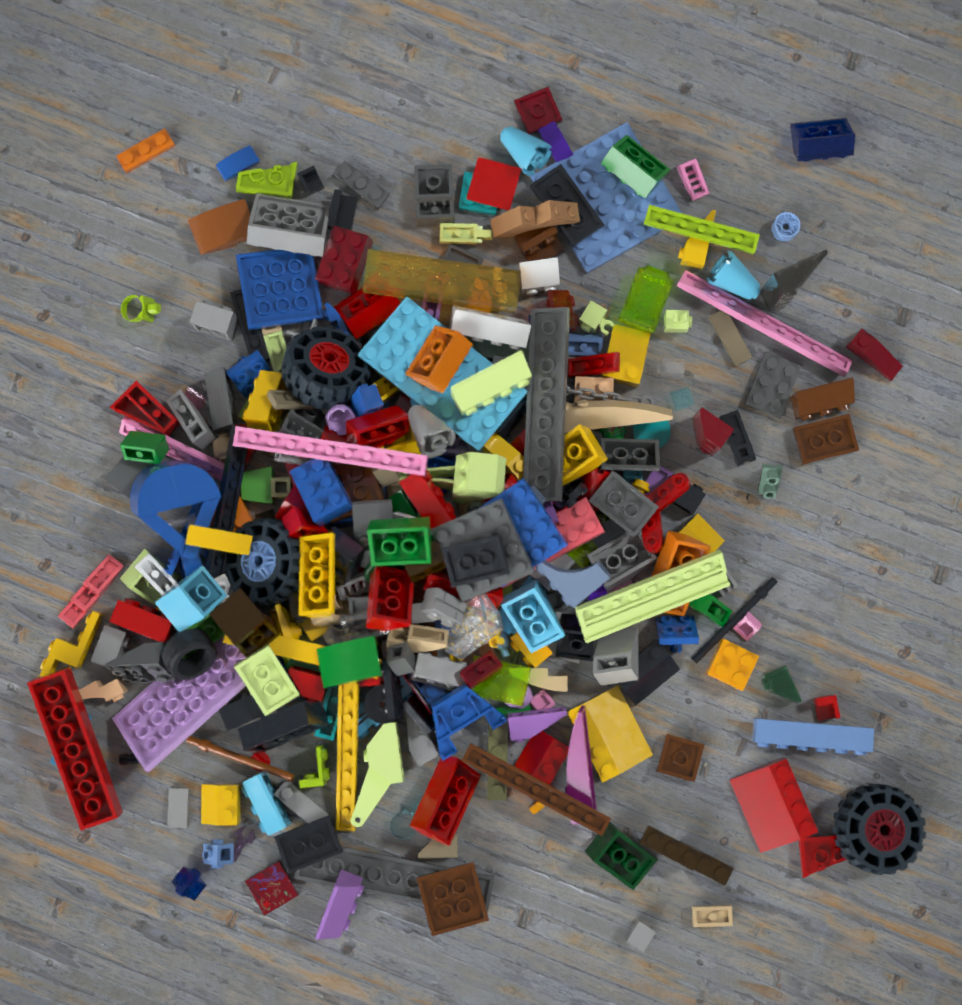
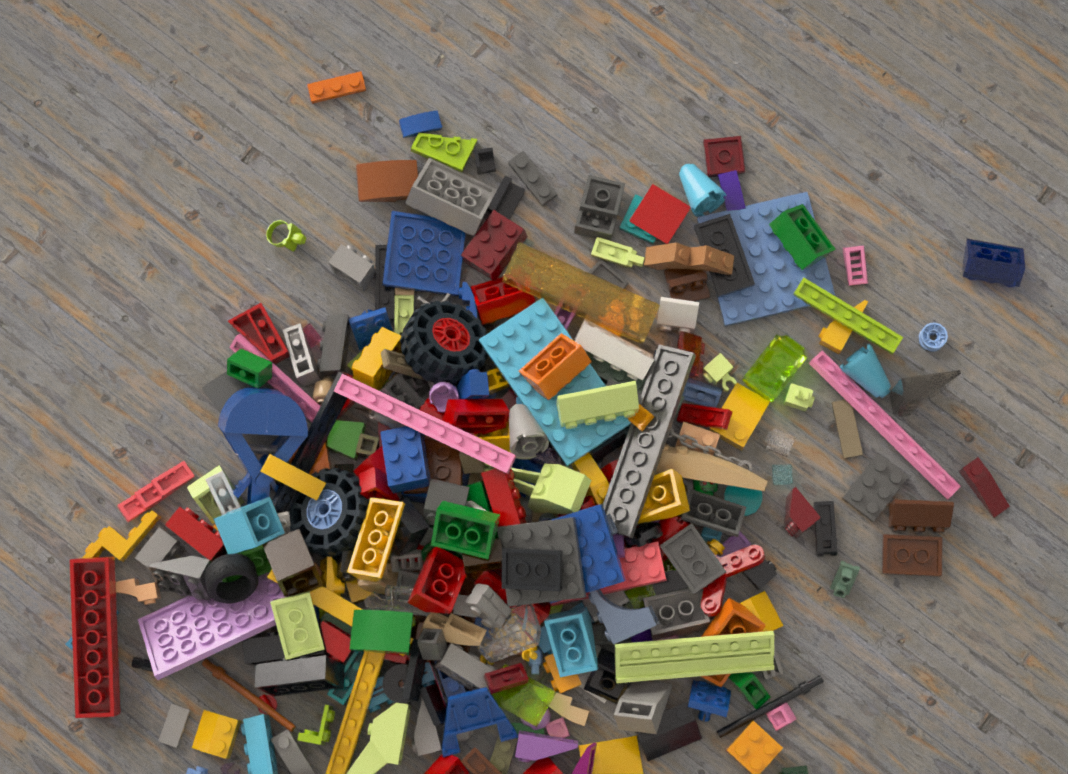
camera: 20 degrees right, 5 degrees down
(536, 385) = (641, 418): none -> light orange tile

